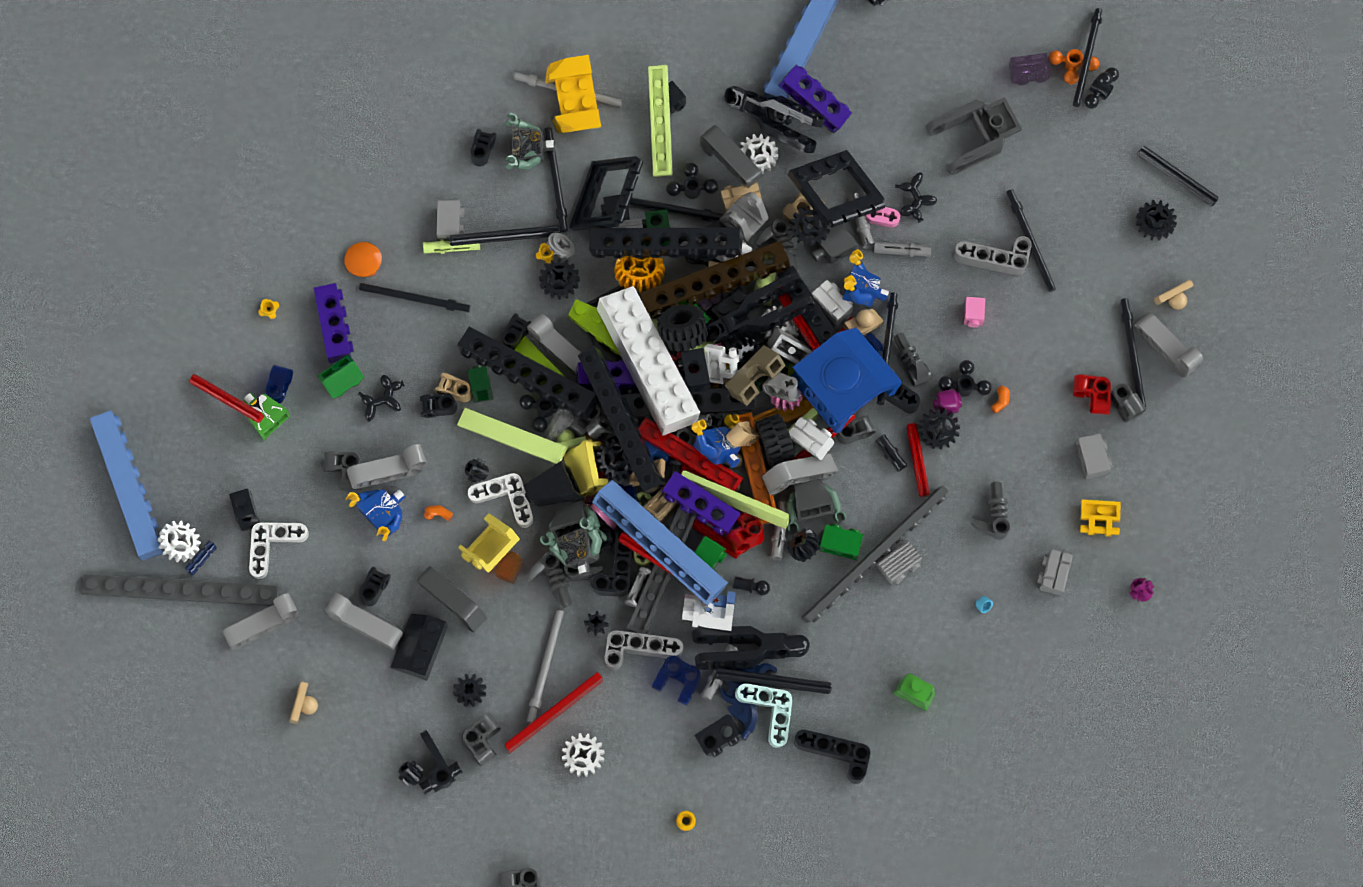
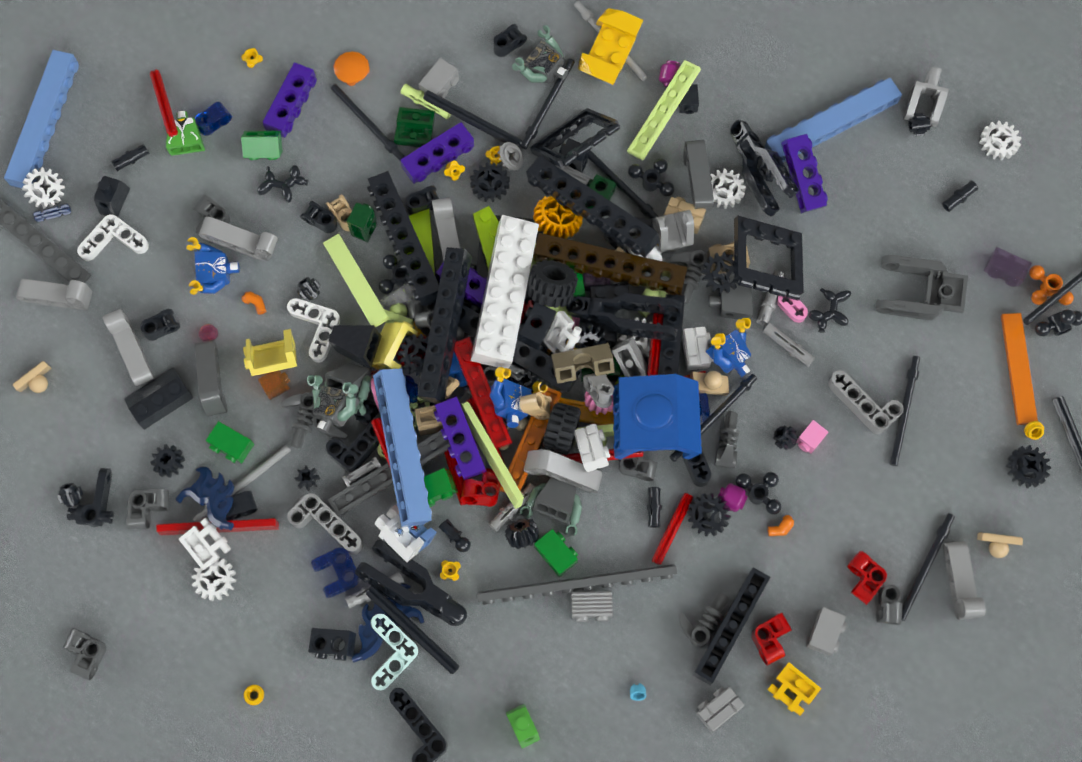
camera: 35 degrees right, 0 degrees up
(231, 465) = (130, 157): none -> black pin
(419, 564) = (208, 332): none -> clear pink plate
(458, 275) = (414, 127): none -> dark green slope
(502, 256) = (440, 144): none -> dark purple brick
(510, 640) = (229, 442): none -> green brick
(521, 289) = (450, 167): none -> yellow plate
(531, 688) = (213, 494): none -> dark blue piece
(555, 736) = (200, 548): none -> white plate
(558, 683) = (242, 506): none -> black piece
(640, 85) = (668, 71): none -> magenta head
(768, 609) = (455, 566): none -> yellow plate
(951, 33) = (960, 196): none -> black pin
(954, 326) = (785, 437): none -> black gear
(1019, 502) = (731, 626): none -> black brick
(1060, 499) = (770, 648): none -> red piece
(1095, 146) = (1019, 368): none -> orange tile
(1140, 188) = (1034, 430): none -> yellow plate

